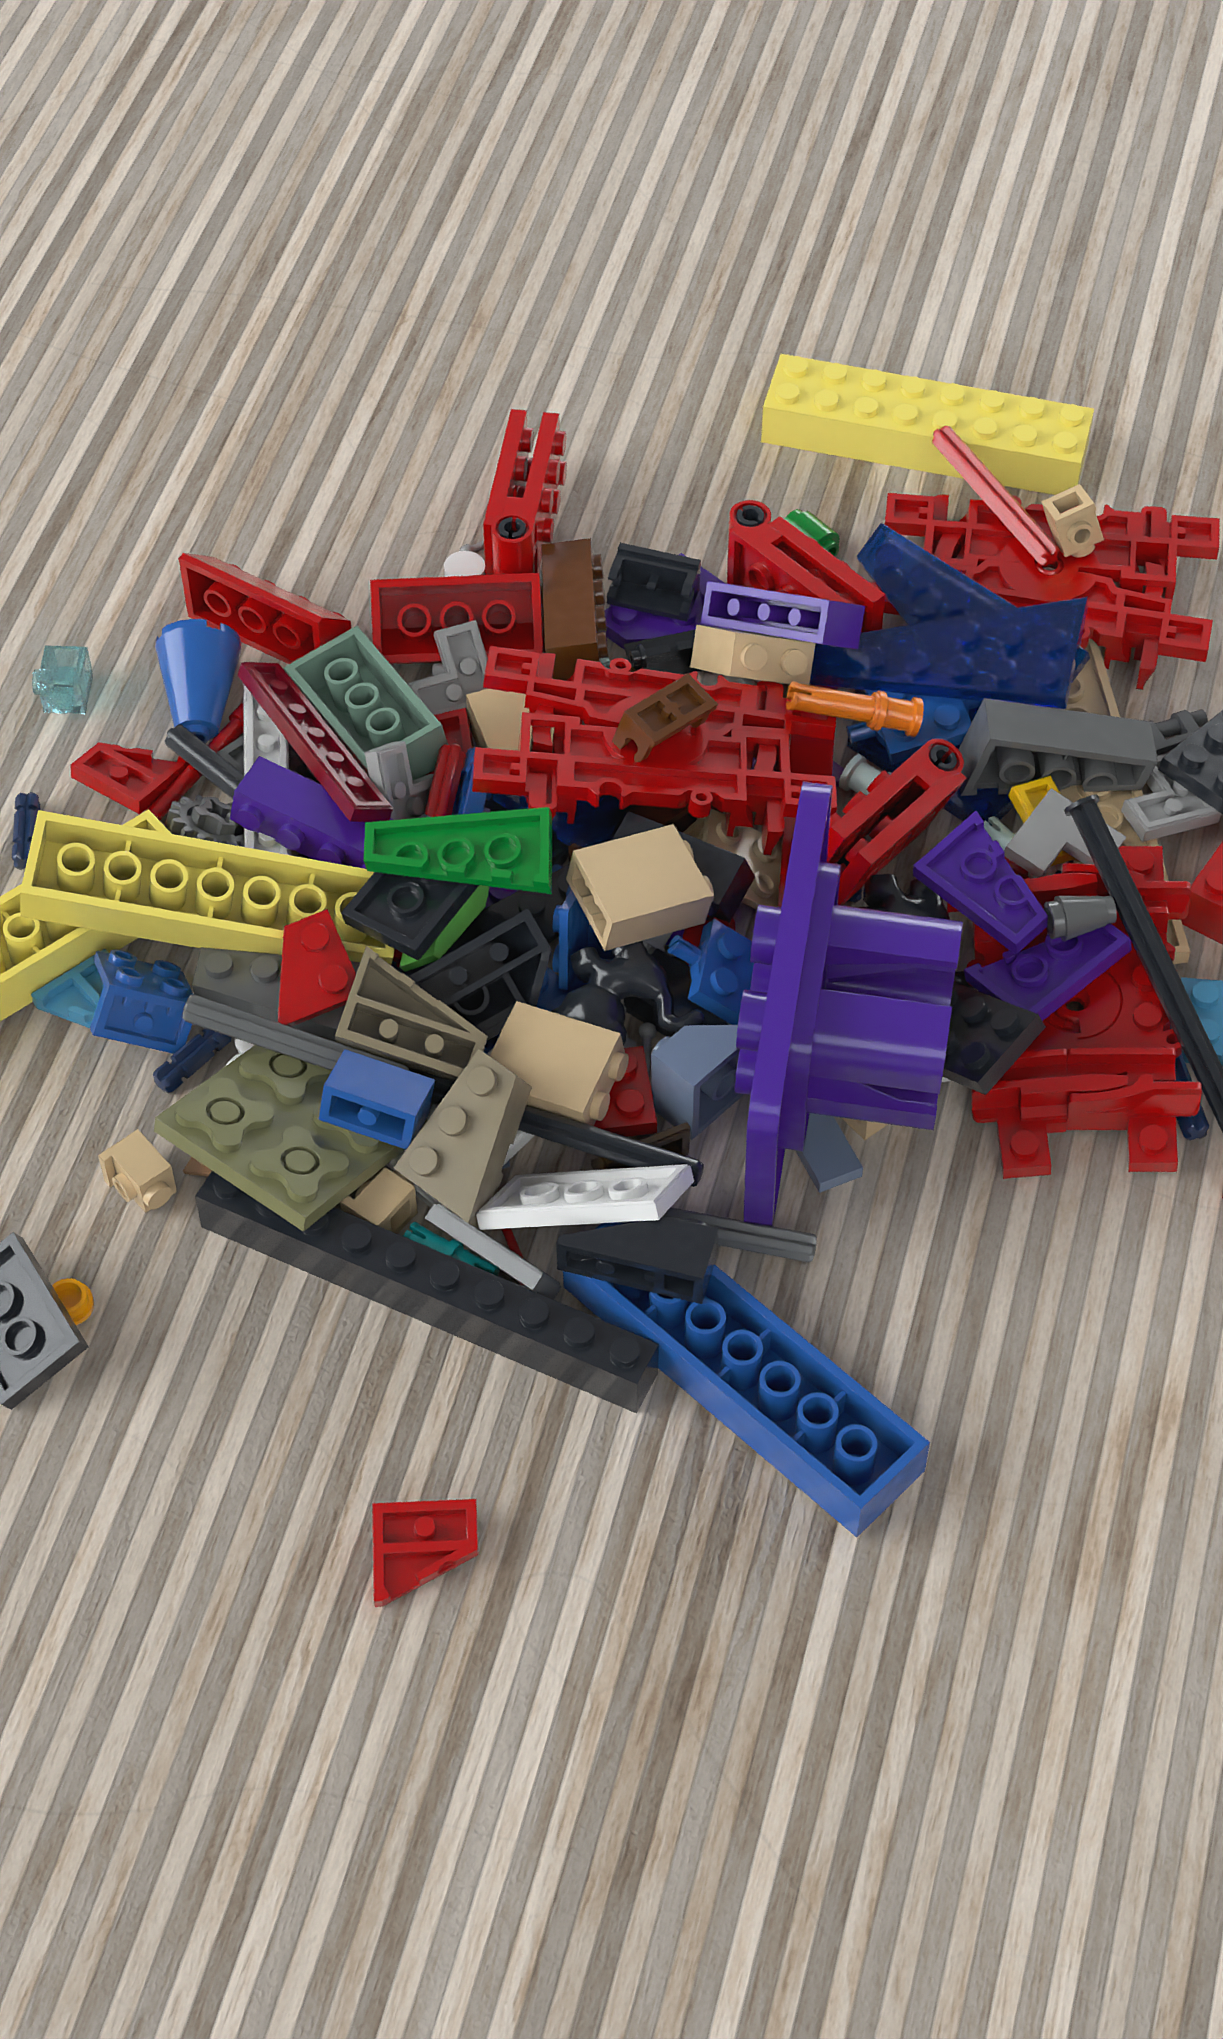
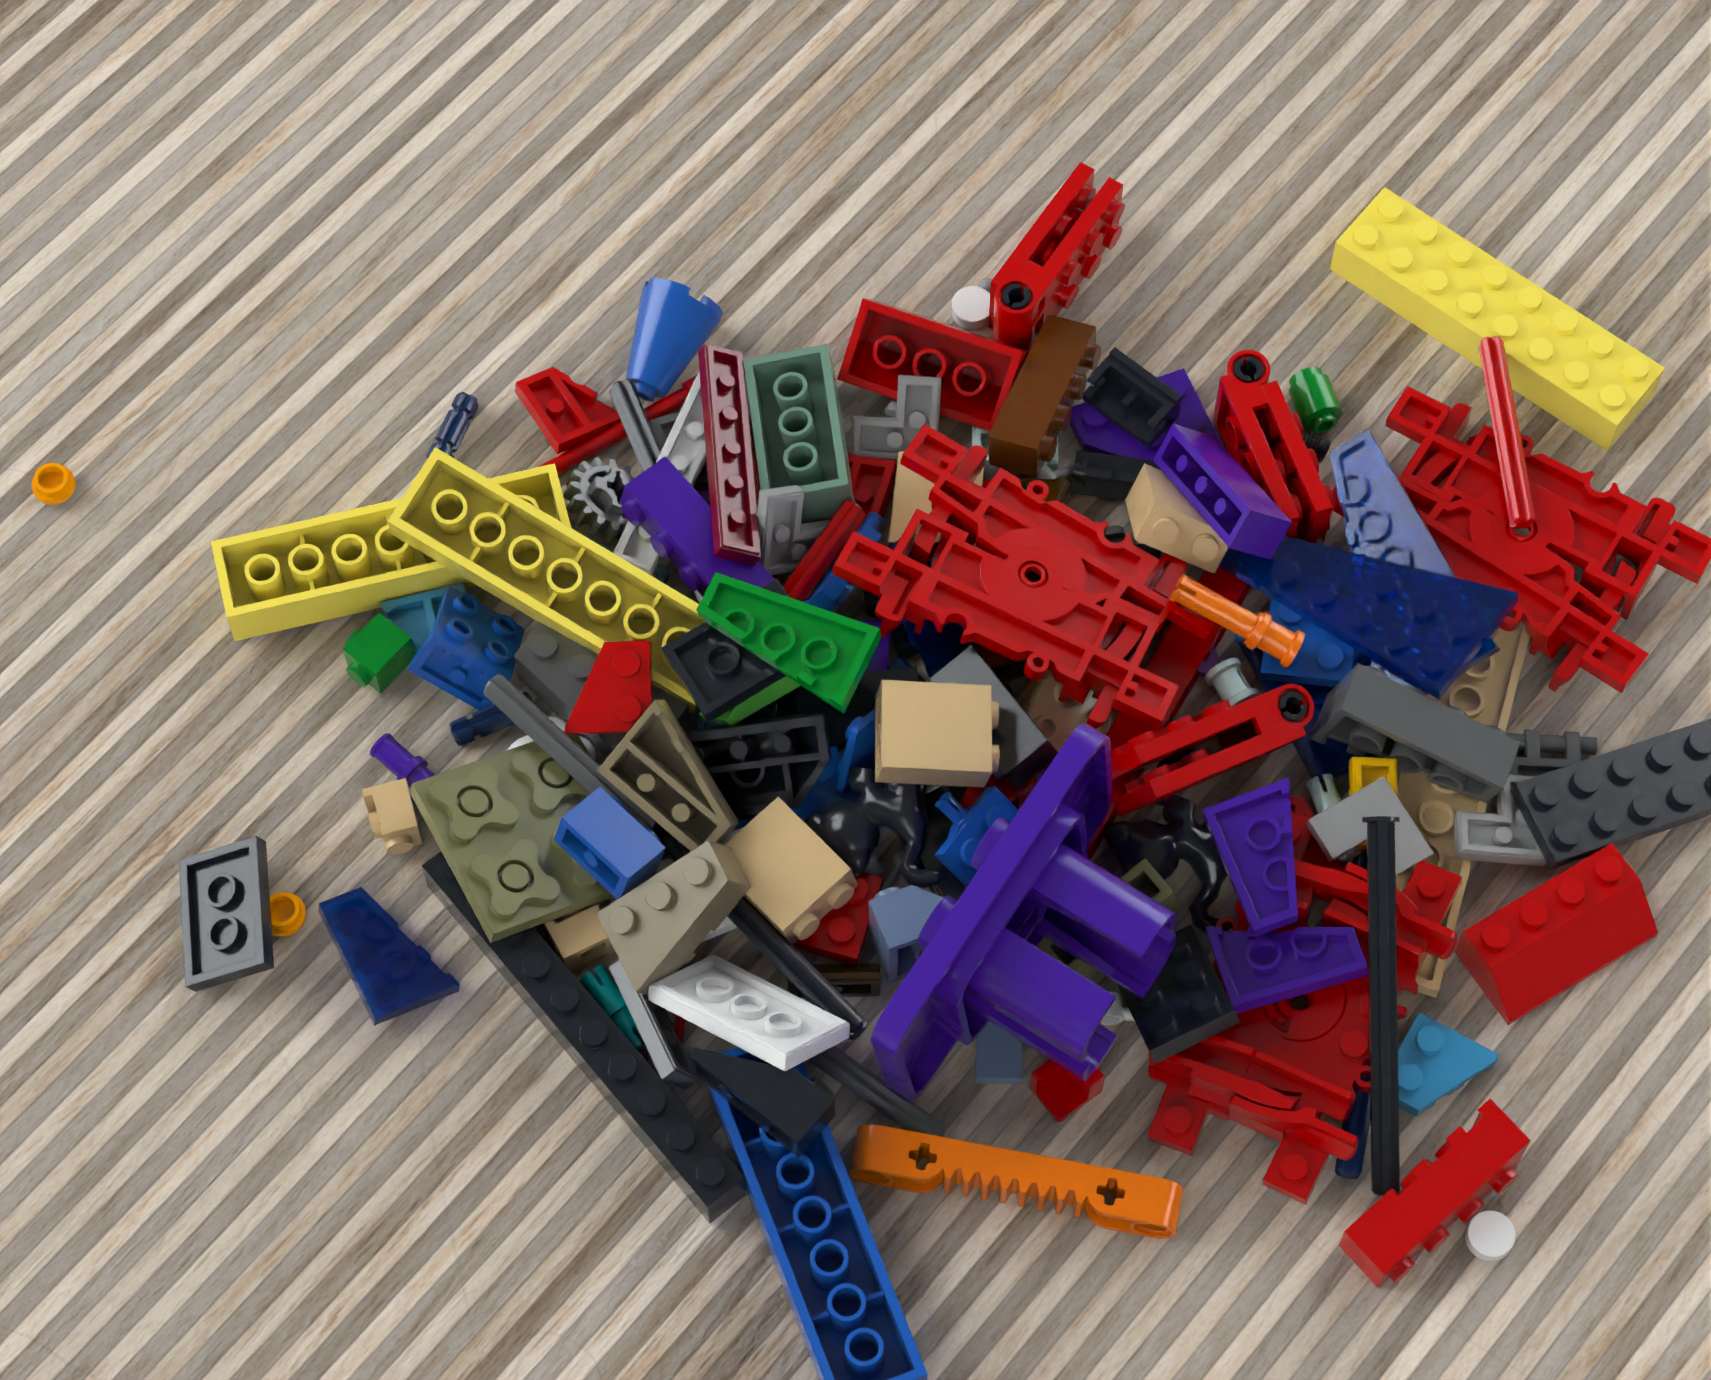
camera: 25 degrees right, 10 degrees up
(51, 1038) = (378, 653): none -> green brick
(64, 679) = (552, 288): clear light blue brick -> none
(121, 1123) = (400, 760): none -> dark purple pin
(192, 1307) = (381, 960): none -> clear blue wing
(256, 609) = (759, 282): red slope -> none
(419, 1543) = (465, 1265): red wing -> none
(664, 715) = (1039, 569): reddish brown hinge -> none
(905, 1157) = (1063, 1091): none -> red panel
(1030, 1227) = (1141, 1202): none -> orange gear
(1076, 528) = (1559, 508): tan brick -> none
(1078, 915) = (1329, 924): dark grey cone -> none

